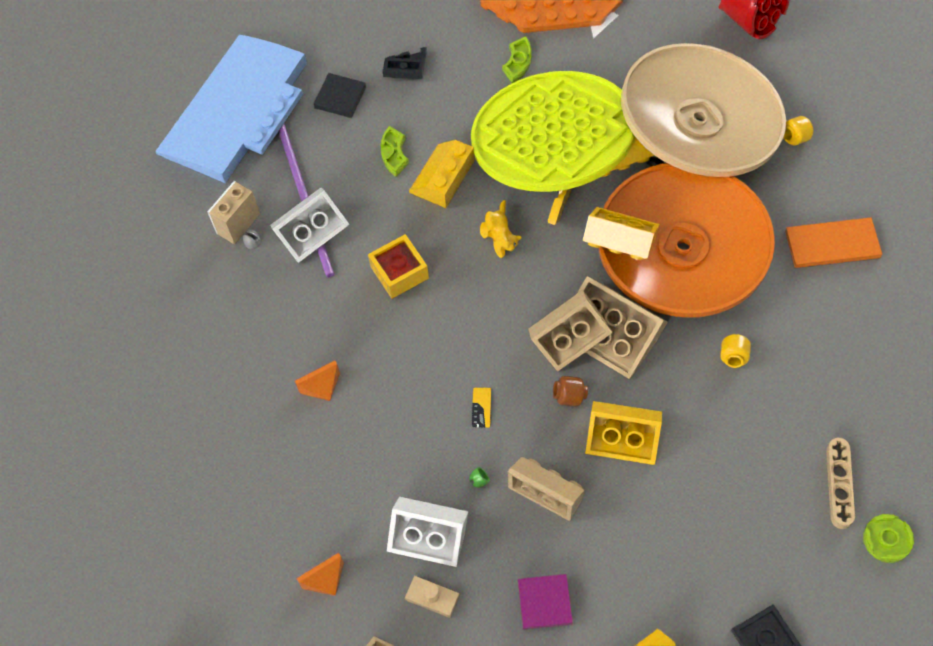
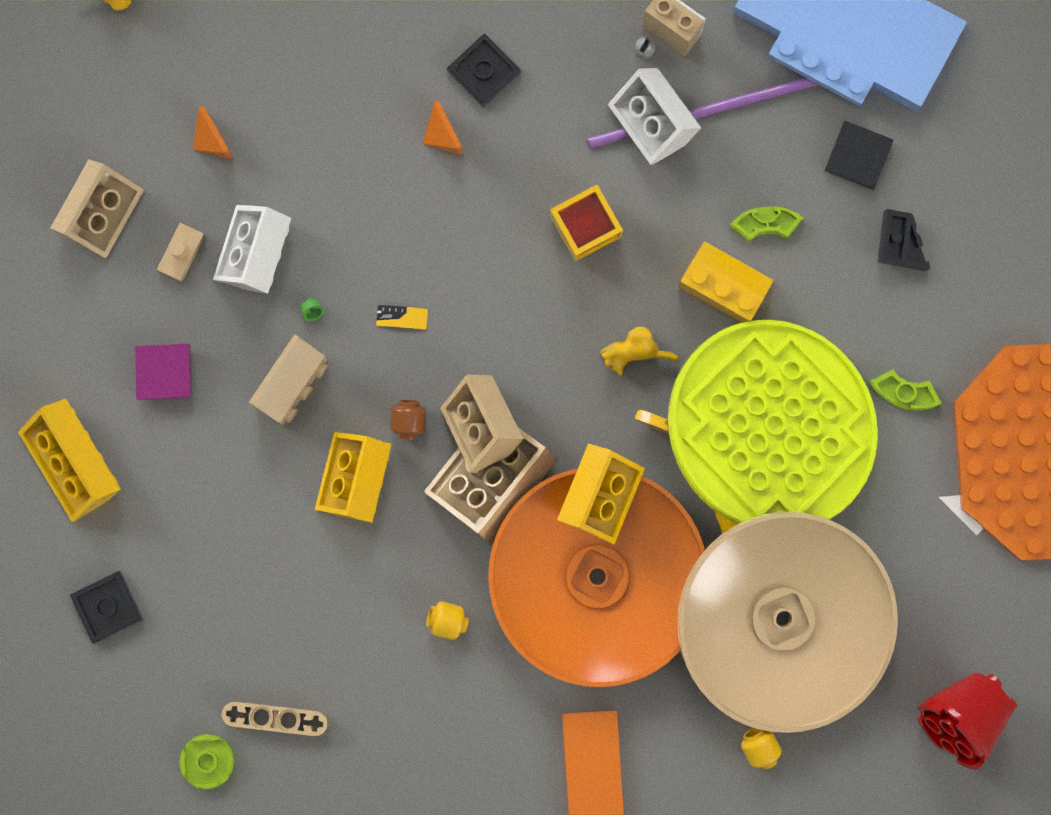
camera: 90 degrees right, 20 degrees up
(267, 356) = (483, 70): none -> black tile

